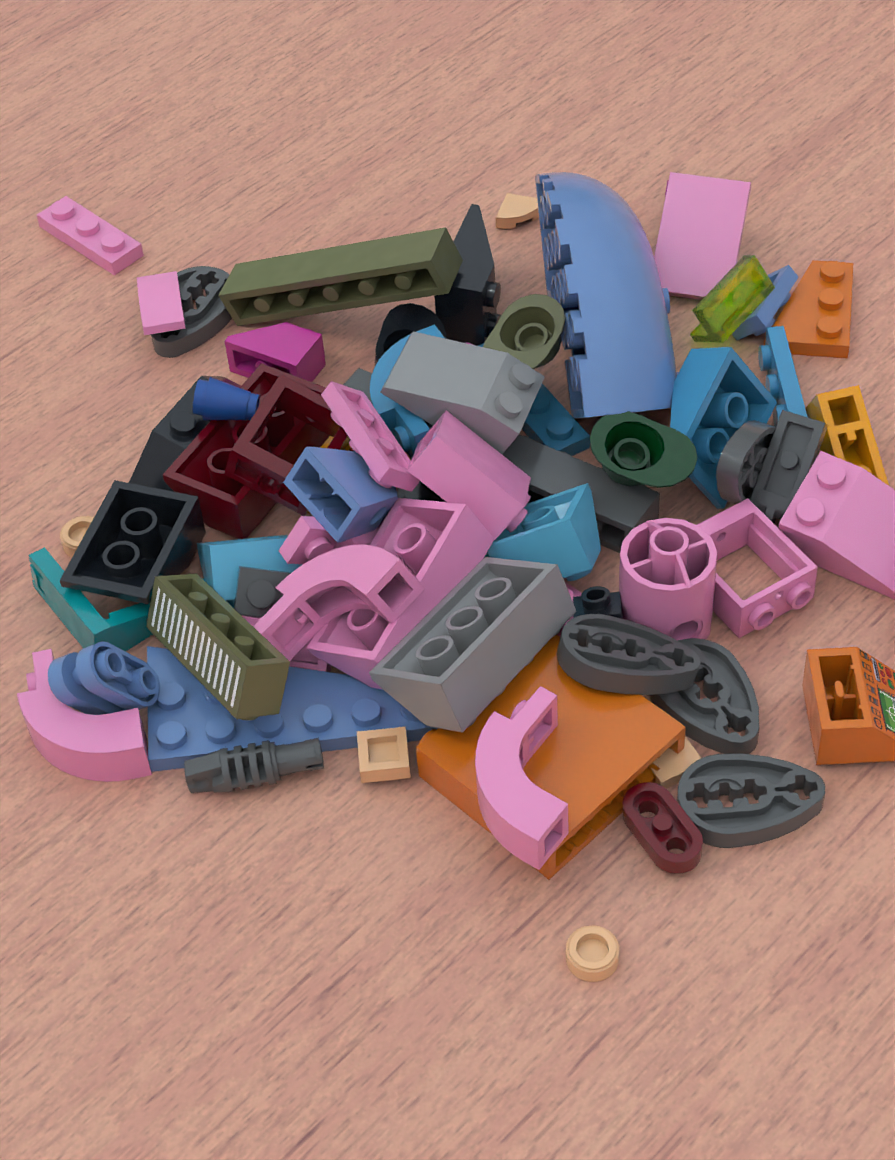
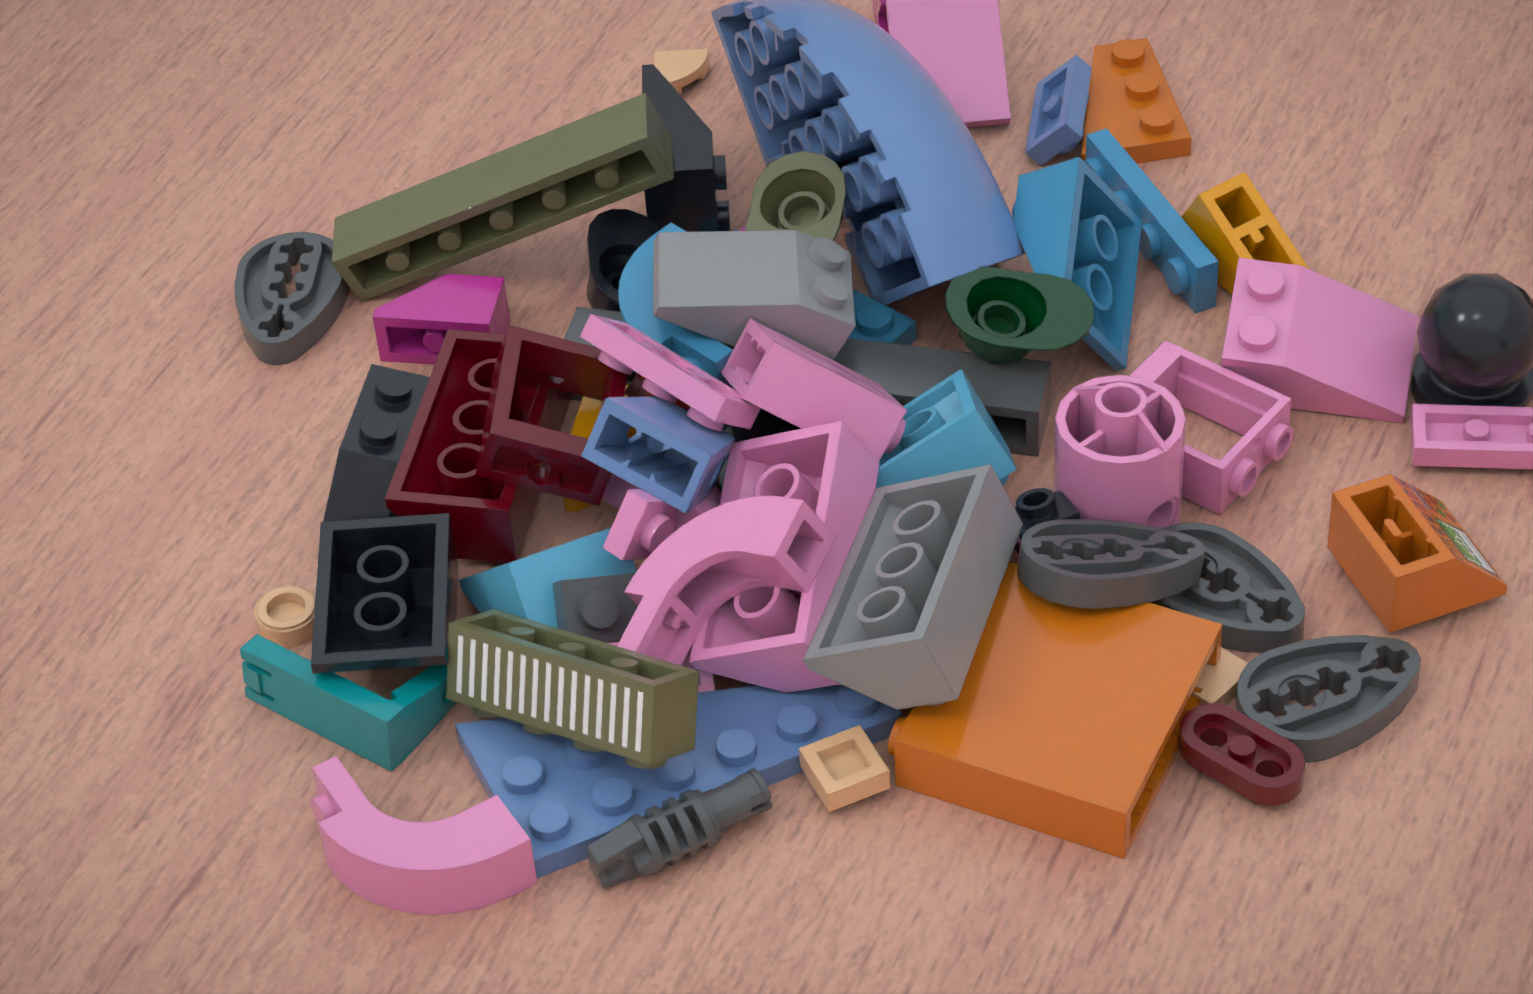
camera: 20 degrees left, 5 degrees down
(90, 235) = (89, 233): bright pink plate -> none
(103, 680) = (436, 771): medium blue brick -> none
(160, 303) = (254, 291): bright pink slope -> none
(223, 401) = (431, 384): blue cone -> none
(513, 807) = (1049, 760): bright pink arch -> none
(592, 953) = (1225, 925): light nougat tile -> none
(731, 301) = (1027, 114): clear neon green panel -> none
(743, 460) = (1147, 298): dark grey piece -> none
(787, 462) = (1197, 287): dark grey hinge -> none

